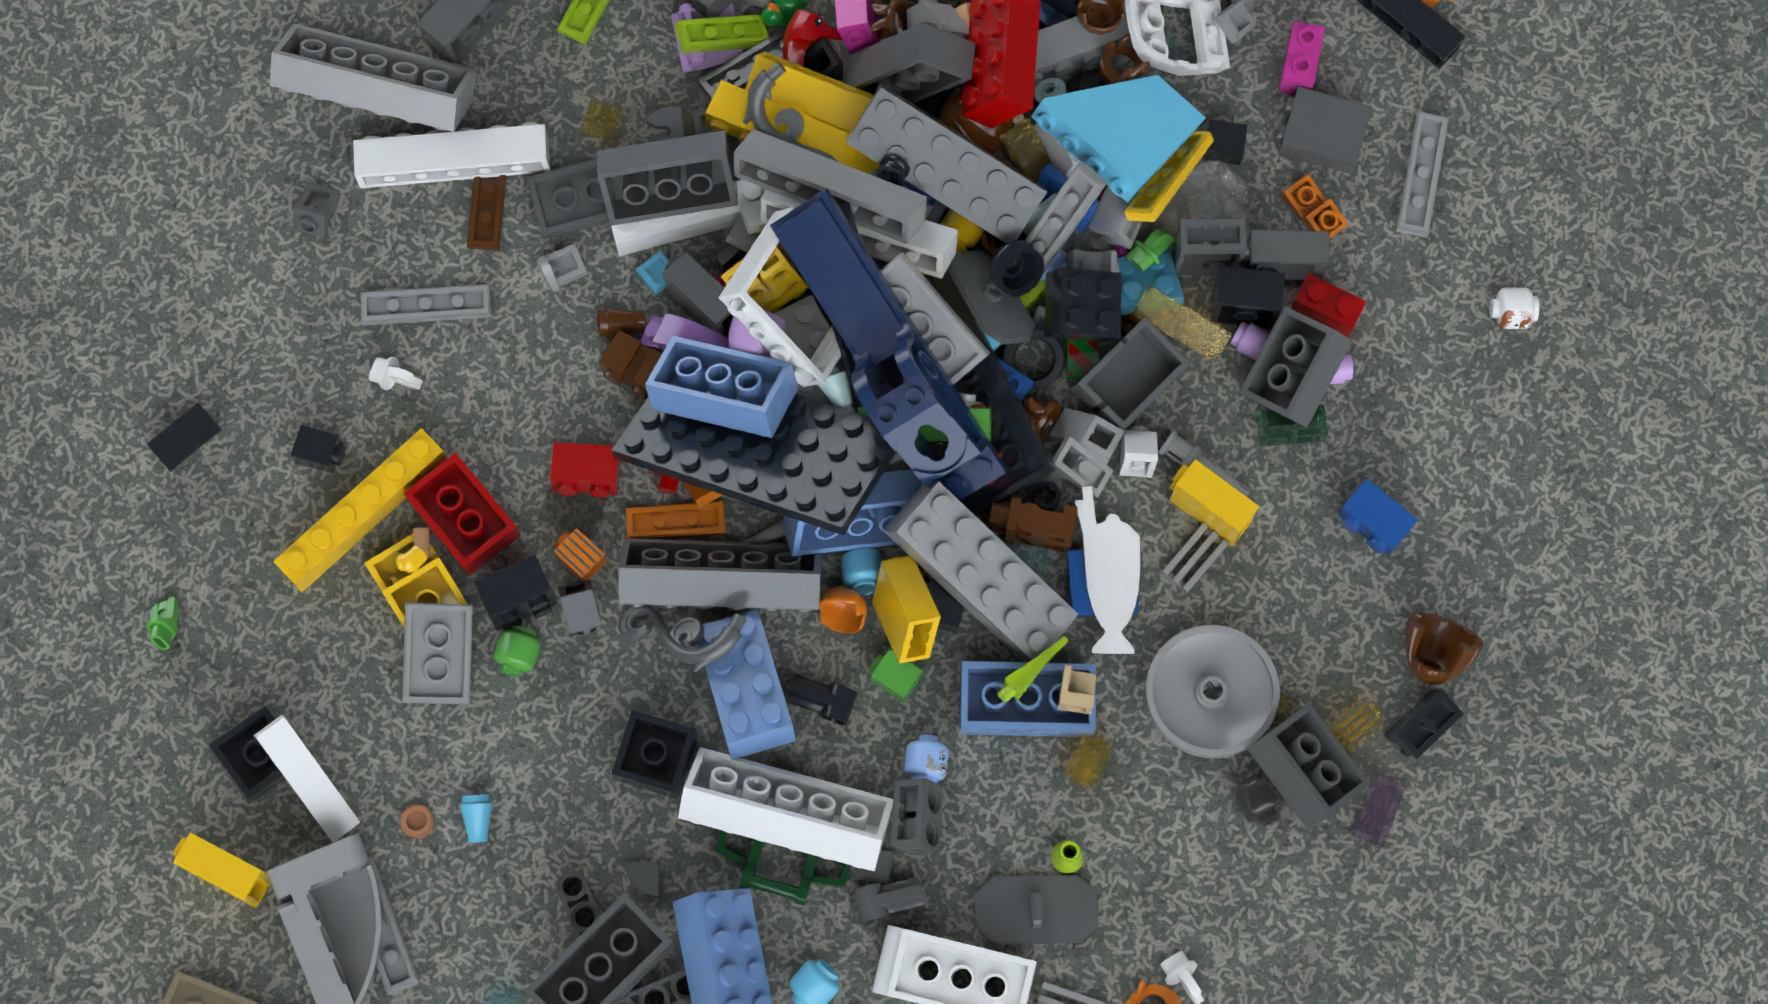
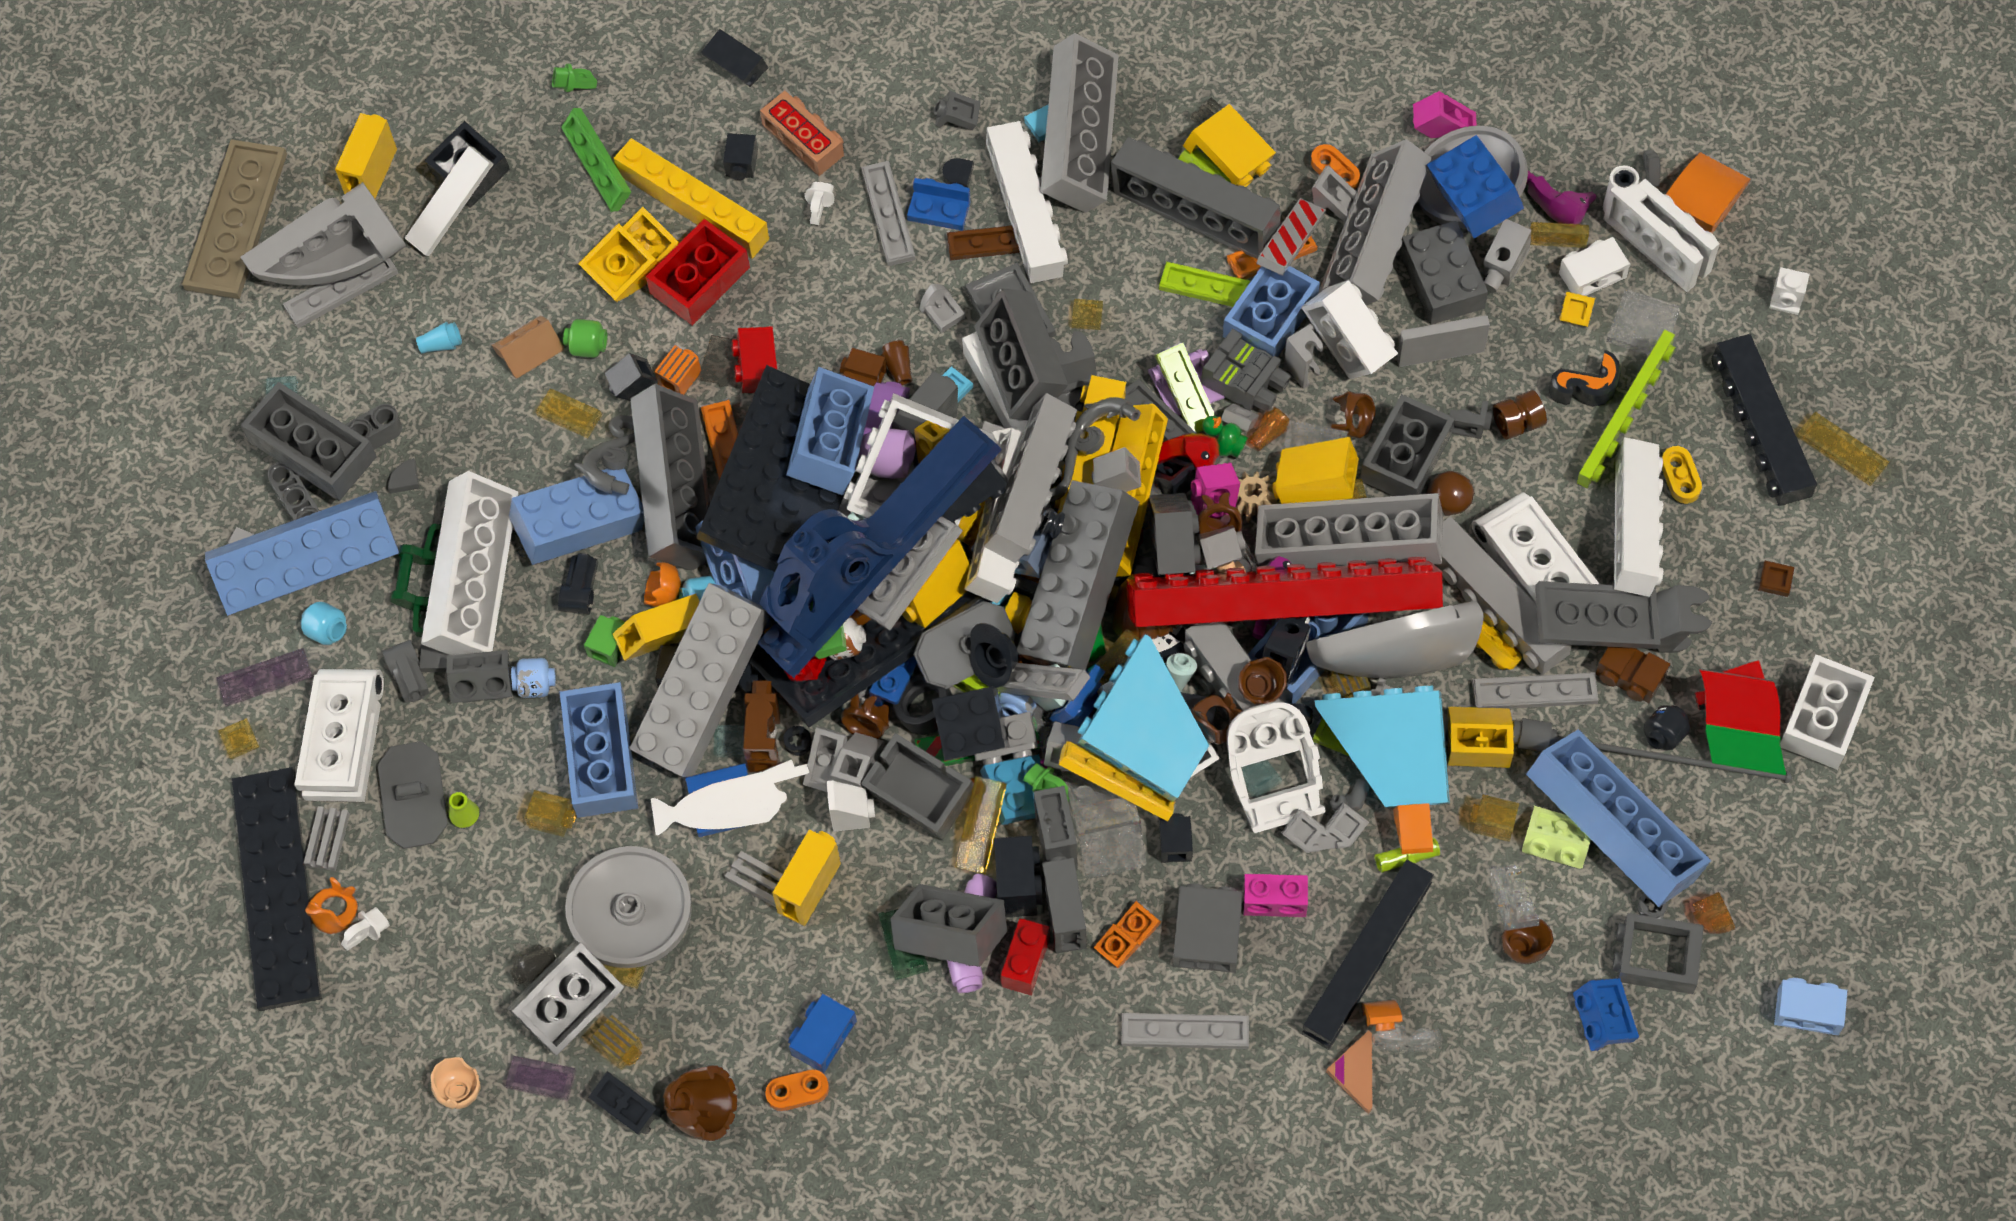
camera: 85 degrees right, 10 degrees down
(281, 610) = (596, 159): none -> bright green tile
(303, 377) = (802, 132): none -> nougat brick
(350, 123) = (1037, 123): none -> medium azure tile
(393, 222) = (958, 171): none -> black tile
(417, 821) = (431, 297): nougat tile -> none
(418, 553) = (655, 243): arm -> none
(430, 248) = (939, 204): none -> blue bracket
(437, 653) = (575, 279): light grey tile -> none
(506, 718) = (529, 346): none -> medium nougat panel
(516, 593) = (631, 322): black brick -> none
(602, 685) = (568, 413): none -> clear yellow tile
(654, 754) = (509, 455): black brick -> none
(835, 104) = (1117, 470): none -> light grey brick
(1020, 680) = (607, 731): lime piece -> none
(1077, 691) = (602, 777): tan panel -> none
(1185, 453) = (852, 860): light grey pin -> none
(1386, 896) = (449, 1074): none -> light nougat hair
(1429, 553) = (797, 1091): none -> orange plate
(1487, 27) = (1354, 1071): none -> nougat tile
(1514, 308) = (1059, 1134): white head -> none

